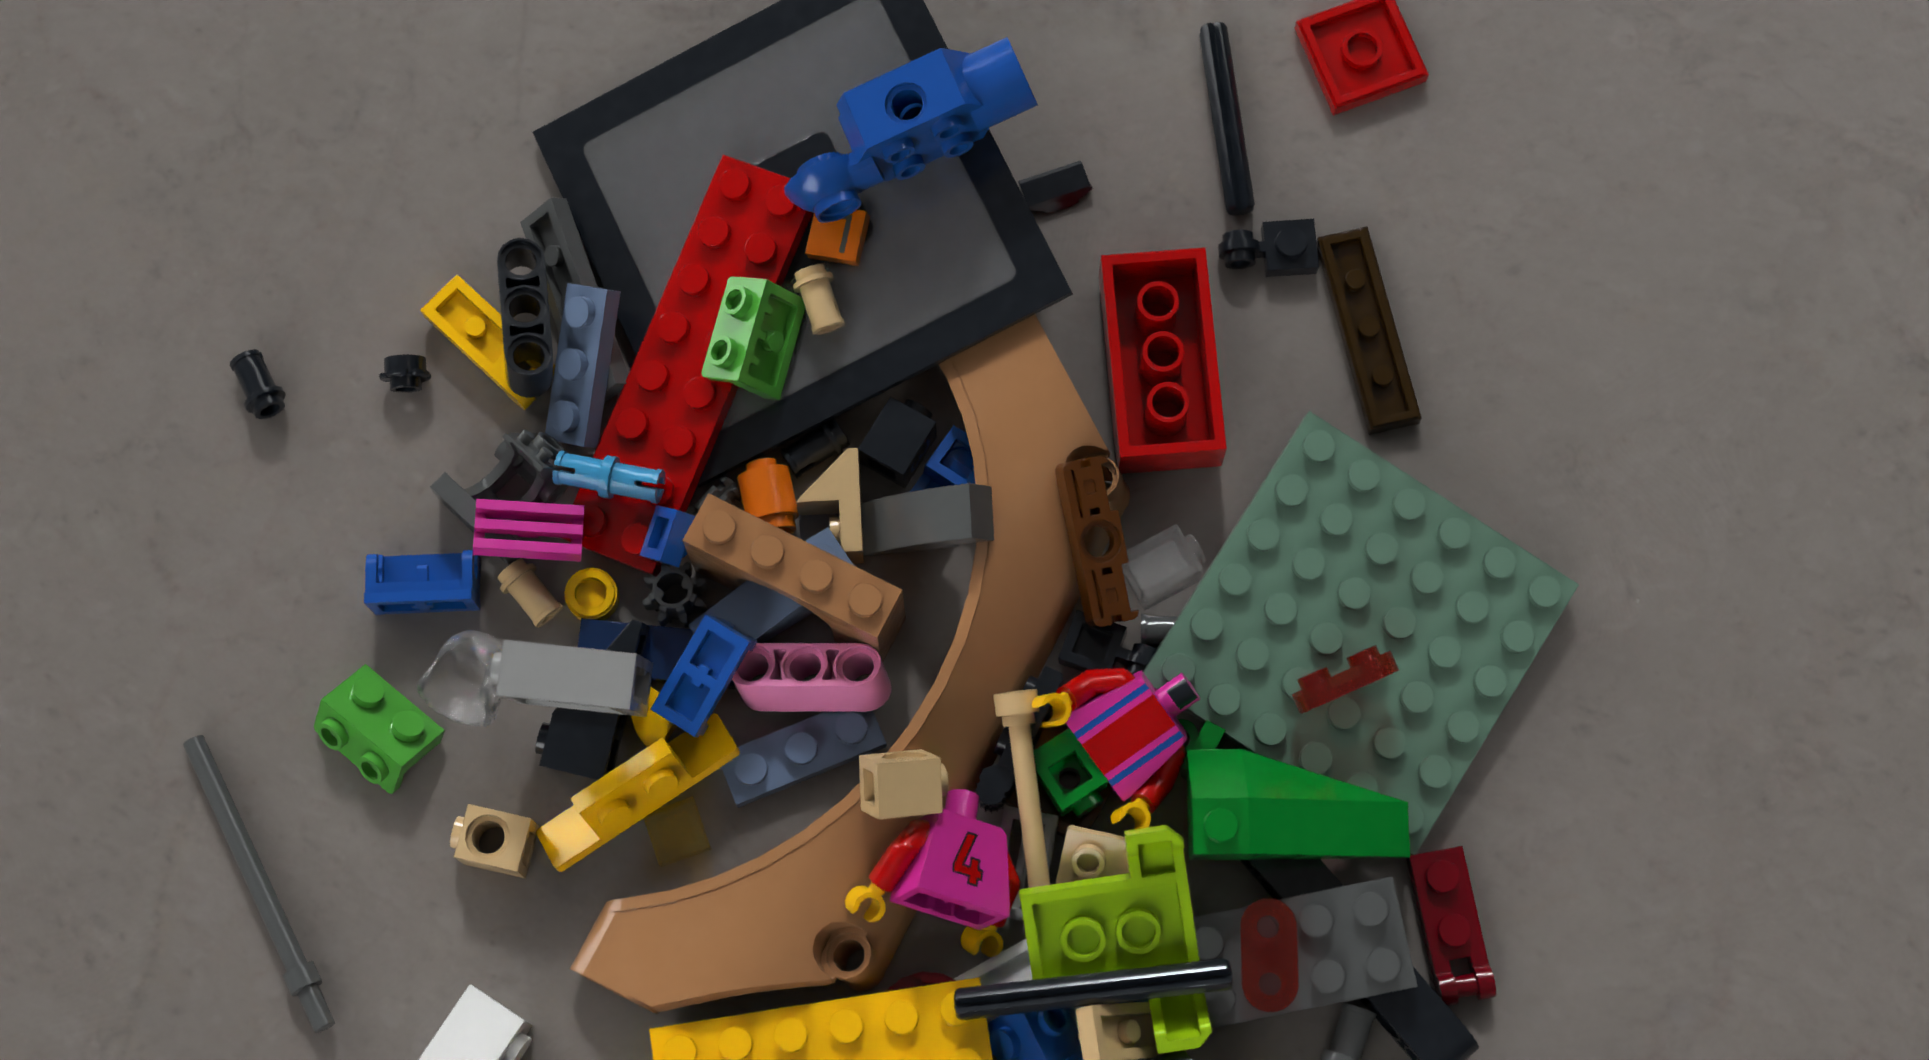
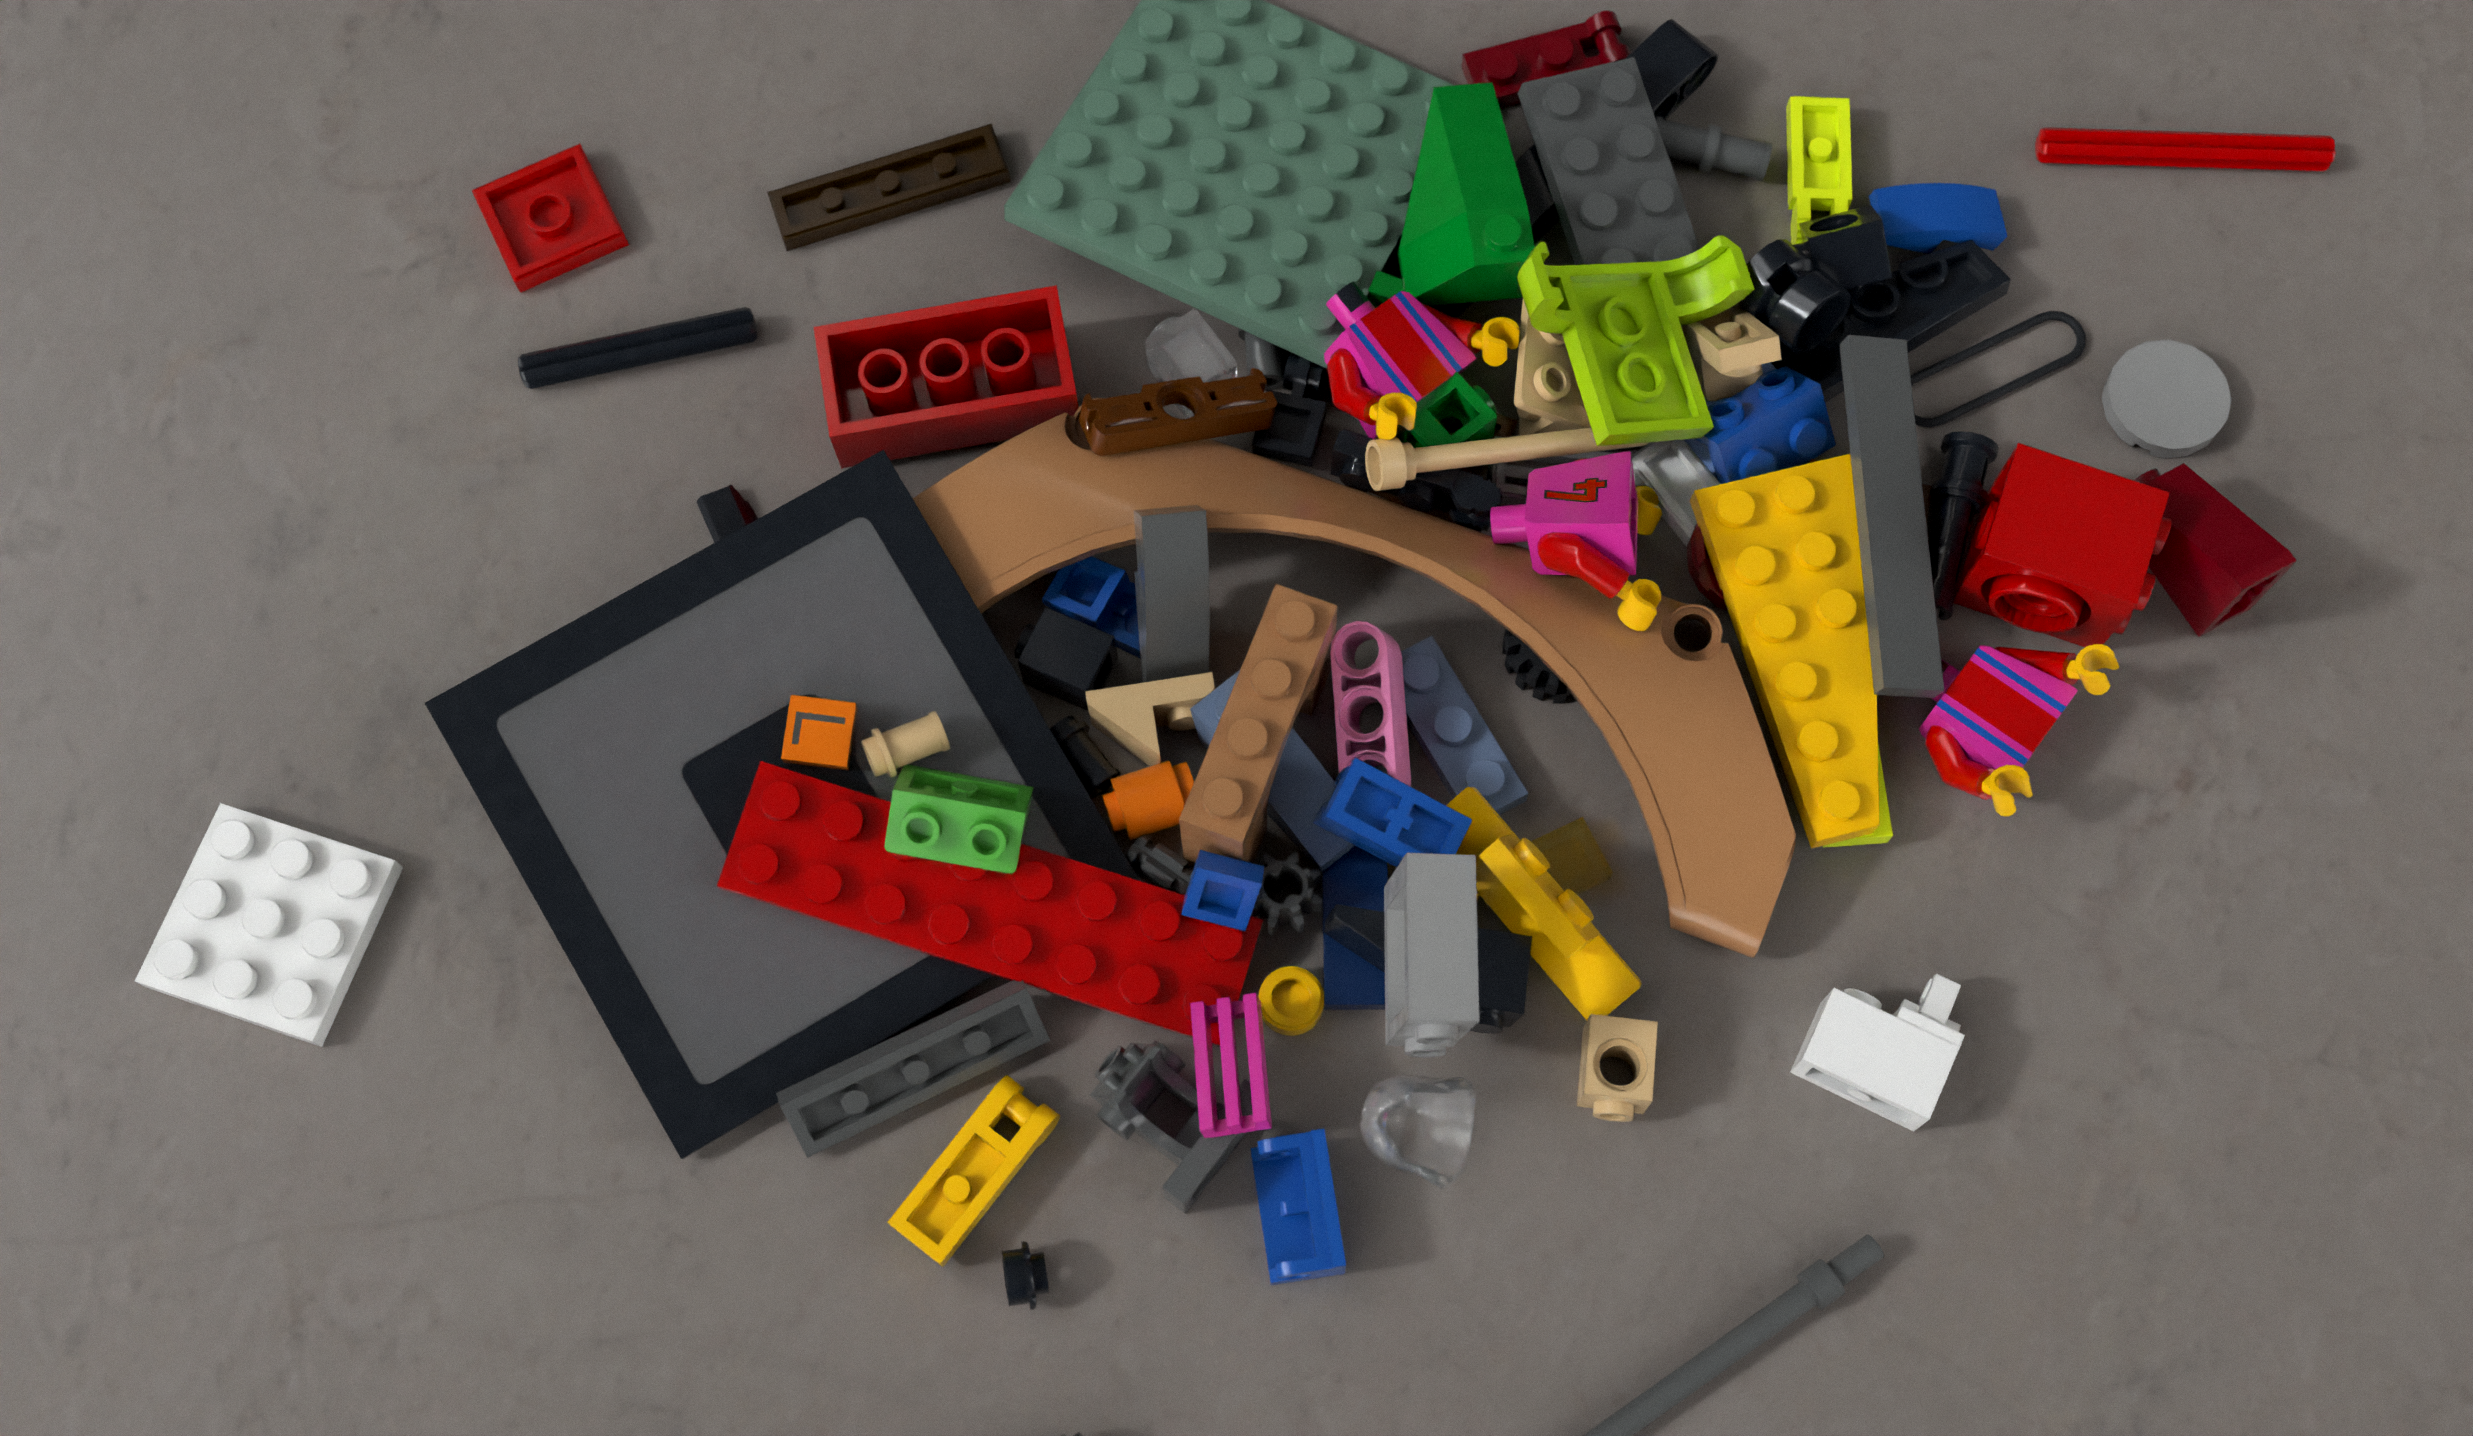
camera: 95 degrees left, 5 degrees down
(376, 728) = (1496, 1239): bright green bracket -> none
(525, 295) = (917, 1103): black beam -> none
(529, 592) = (1300, 1072): tan pin -> none
(582, 365) = (1002, 1035): sand blue plate -> none
(608, 477) = (1152, 973): dark azure pin -> none
(902, 784) = (1505, 565): tan brick -> none
(911, 119) = (652, 586): blue brick -> none
(1093, 989) = (1696, 362): black axle -> none
(1271, 955) = (1630, 193): clear red plate -> none
(1286, 246) = (795, 282): black plate -> none
(1364, 669) = (1314, 144): clear red plate -> none

